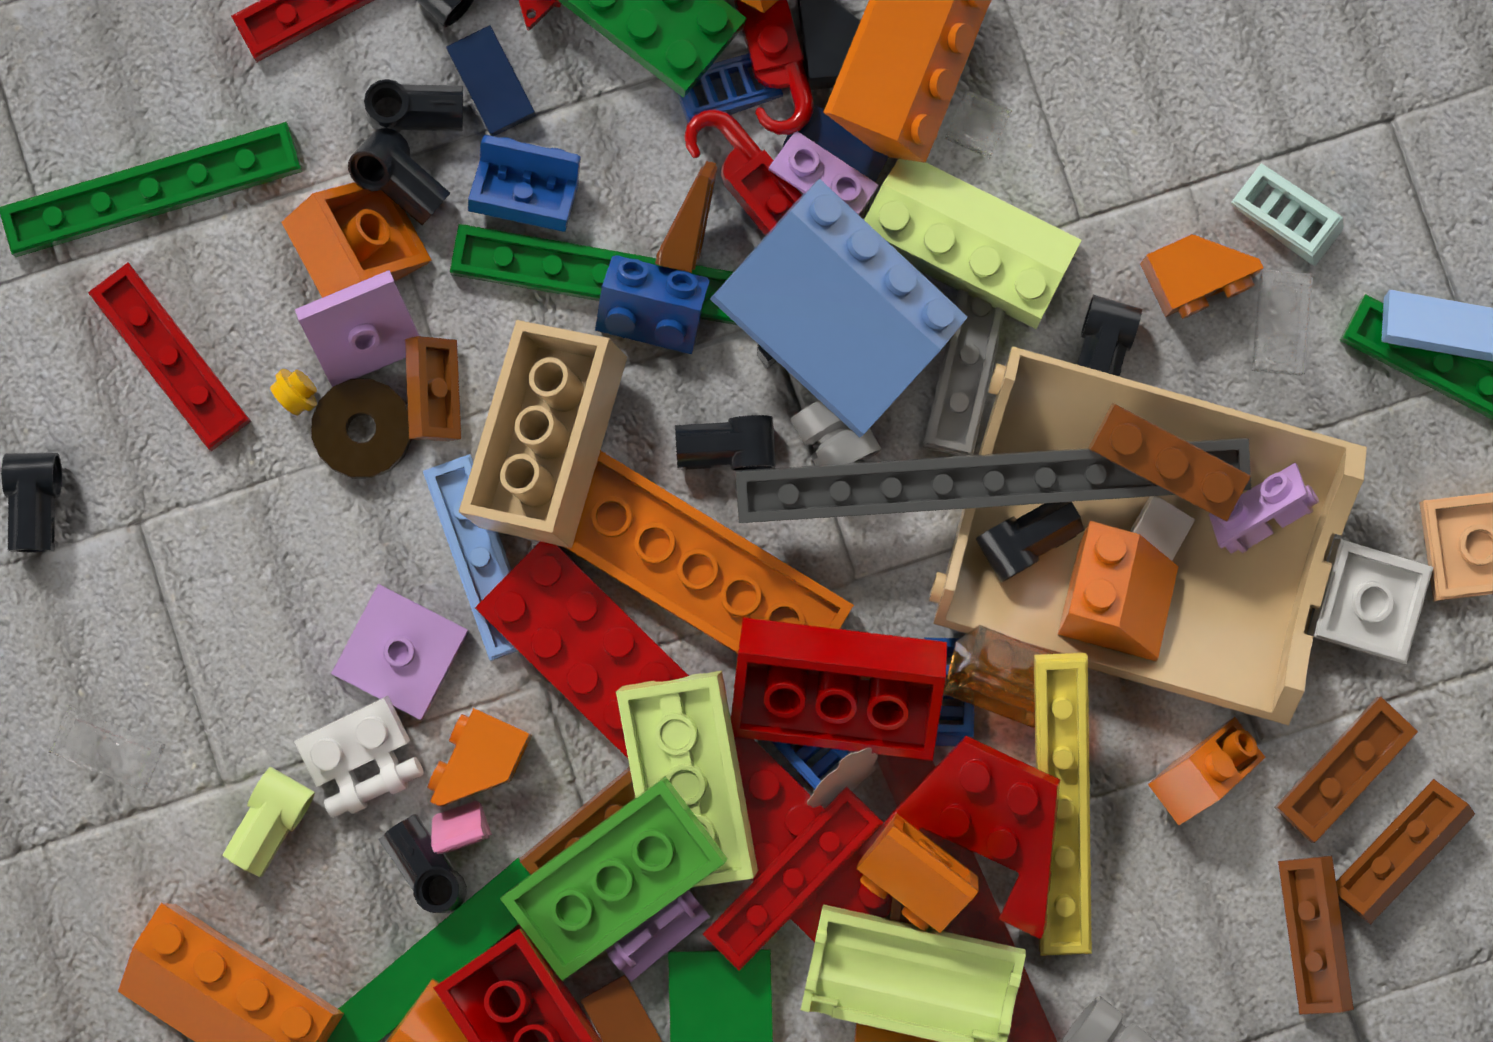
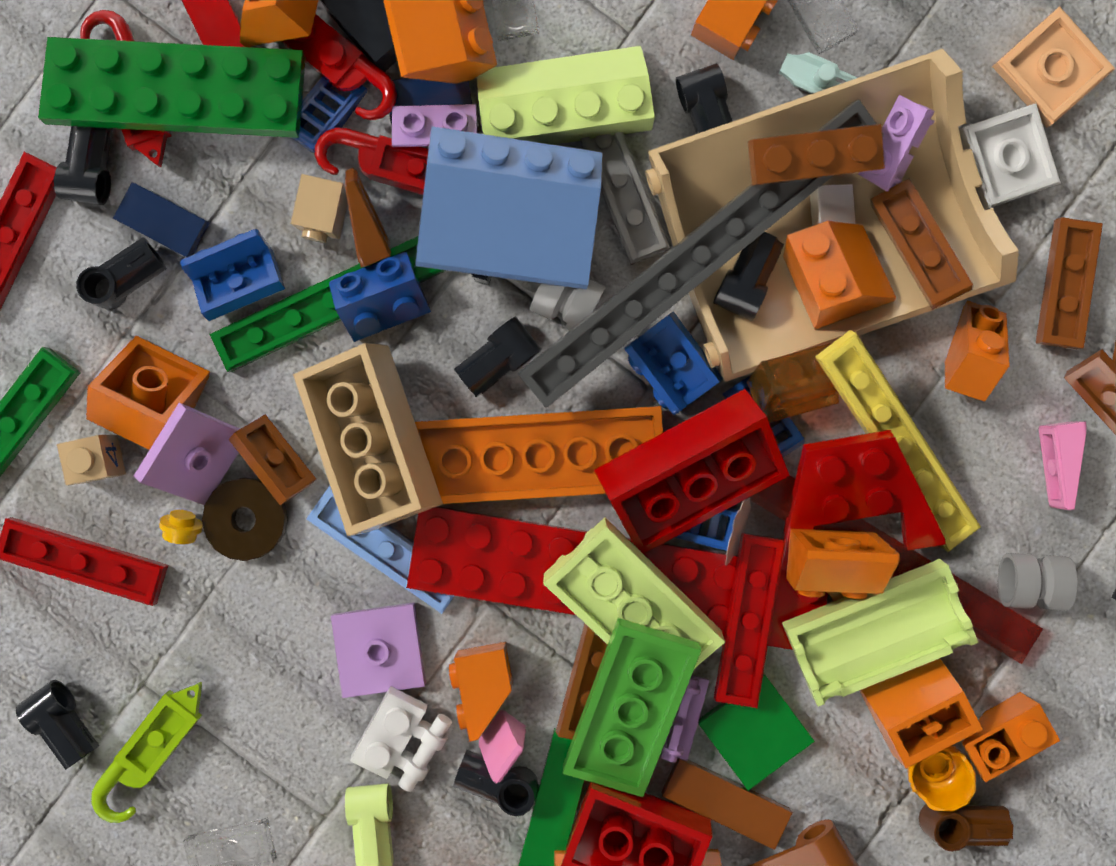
camera: 25 degrees left, 5 degrees up
(102, 588) = (148, 748): none -> lime plate
(257, 264) = (91, 459): none -> tan brick
(386, 165) = (129, 328): black piece -> none
(655, 179) = (319, 208): none -> tan brick
(894, 571) = (672, 364): none -> blue bracket
(1218, 622) = (921, 244): none -> dark orange plate
(1222, 934) = (1062, 460): none -> bright pink slope
(1233, 384) = (812, 72): none -> light aqua piece

